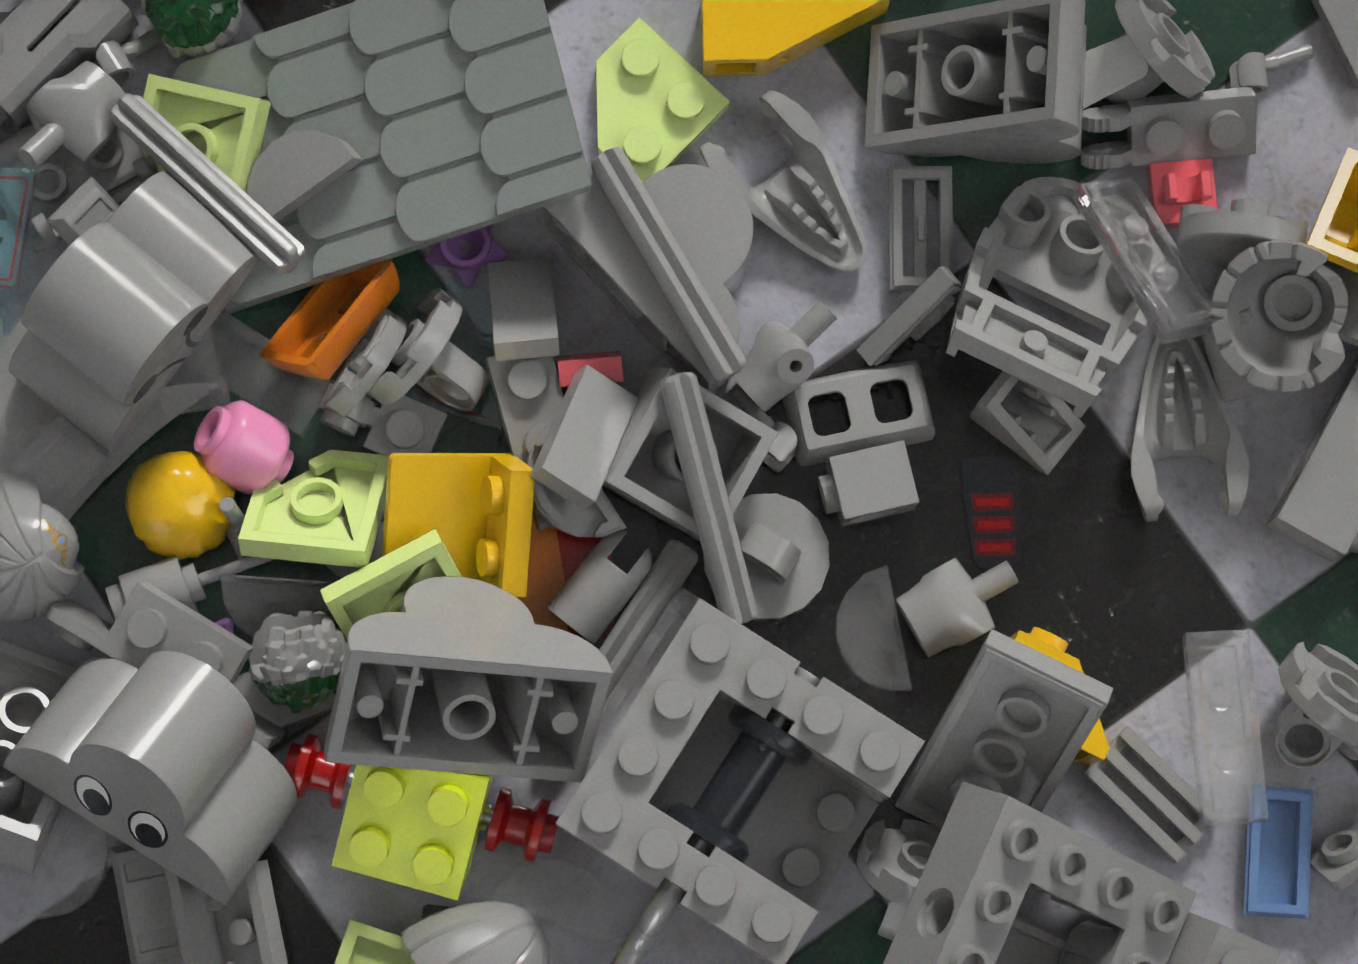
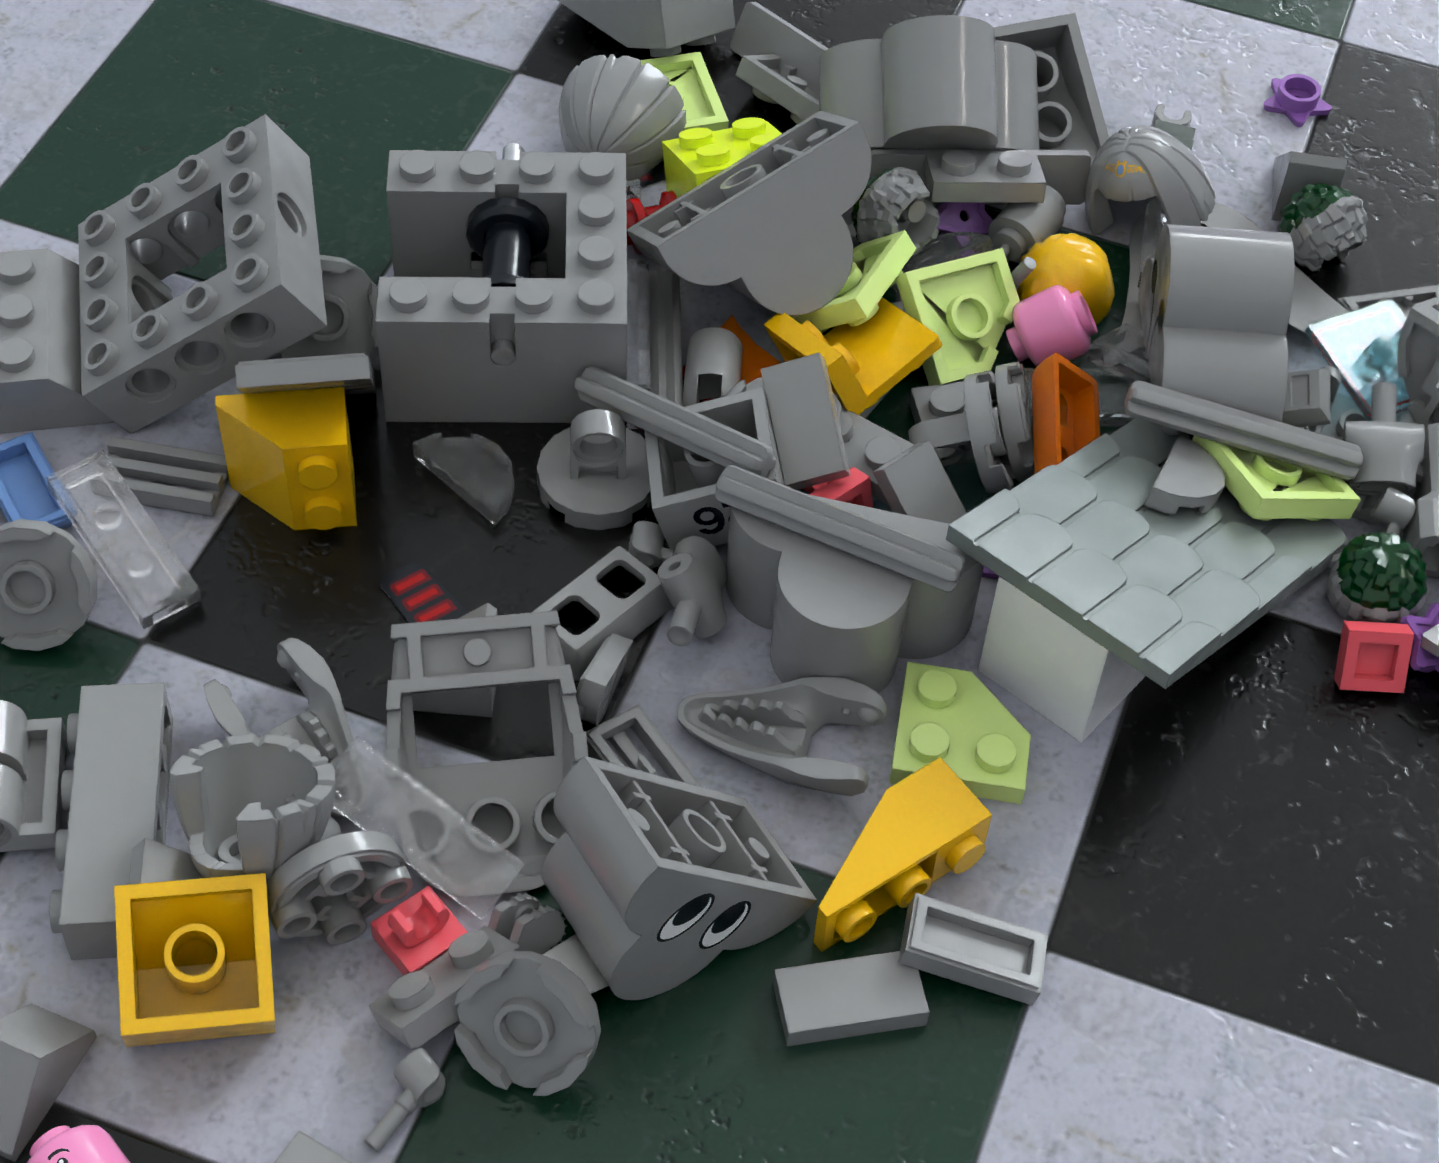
camera: 150 degrees right, 30 degrees down
(869, 484) = (547, 549): light grey brick -> none
(950, 606) = (419, 507): light grey piece -> none

